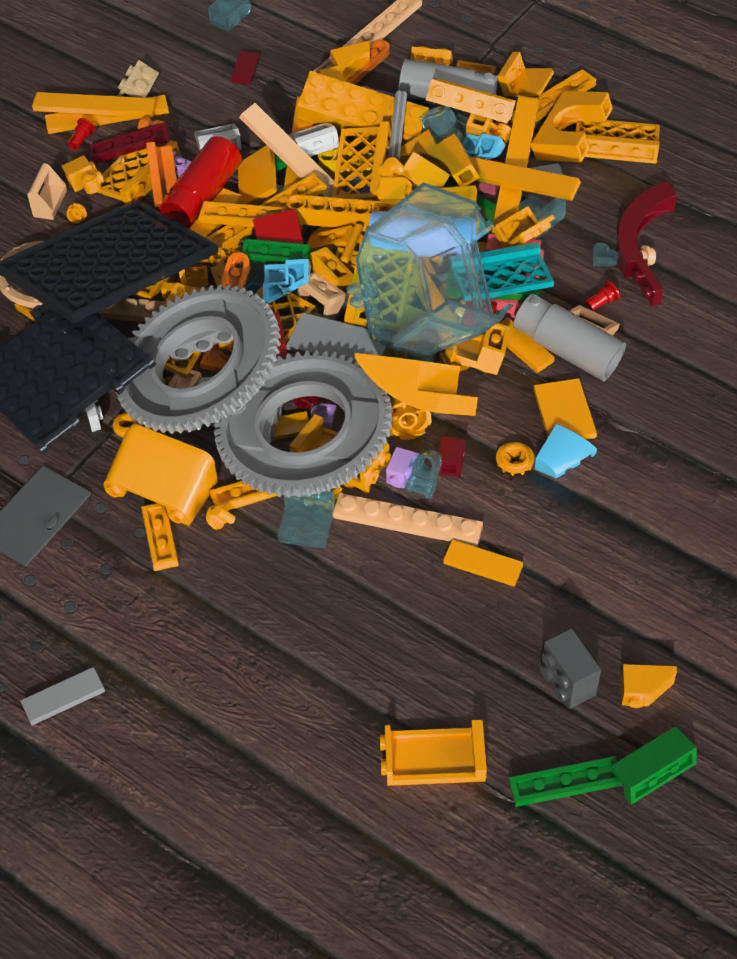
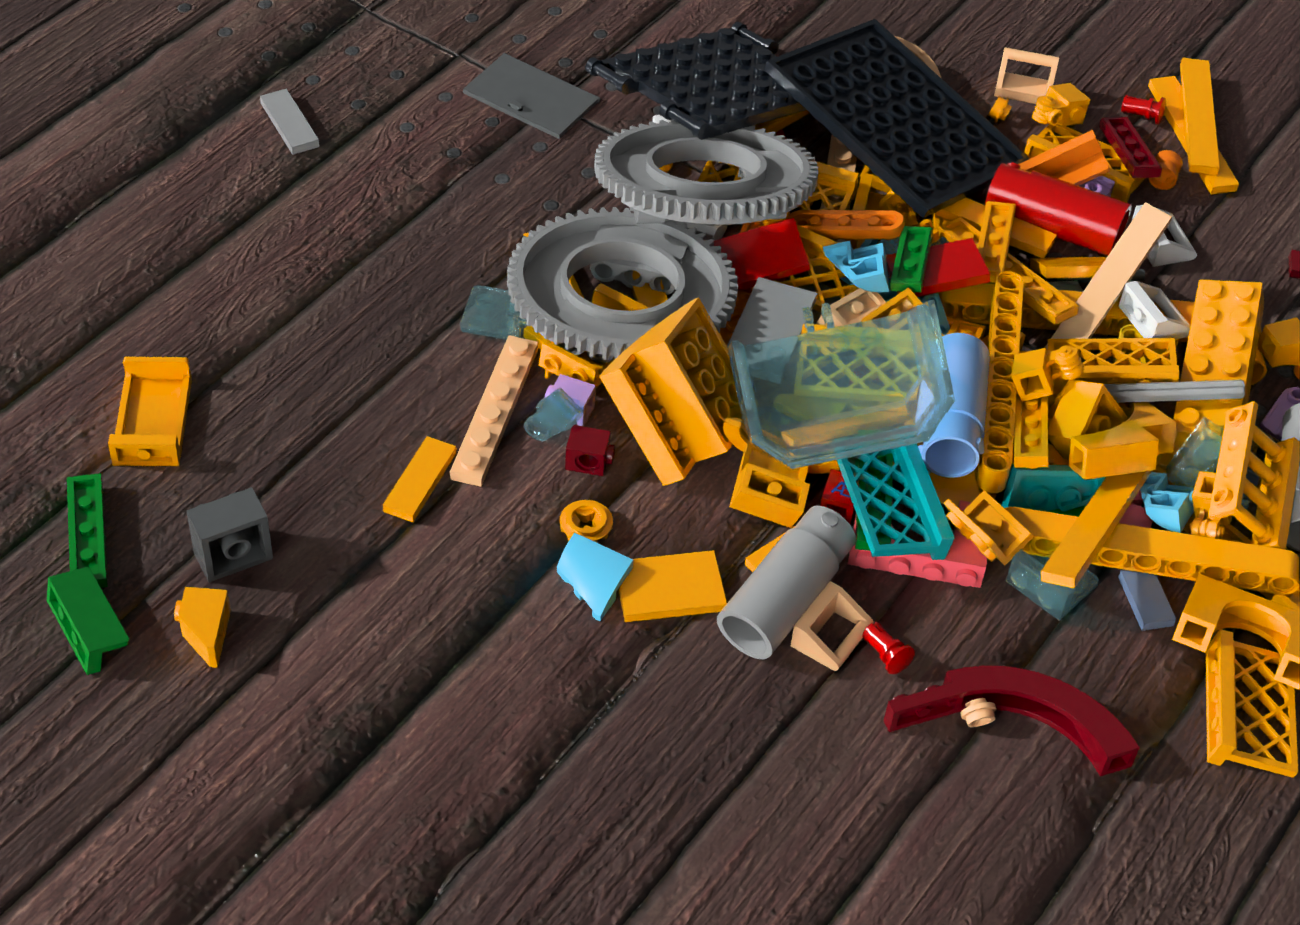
camera: 85 degrees right, 5 degrees down
(139, 80) = (1259, 158): tan bracket -> none
(159, 536) = (491, 191): light orange tile -> none
(162, 472) = (557, 180): light orange windscreen -> none
(217, 517) = (509, 233): light orange plate -> none
(604, 256) = (983, 656): clear light blue tile -> none

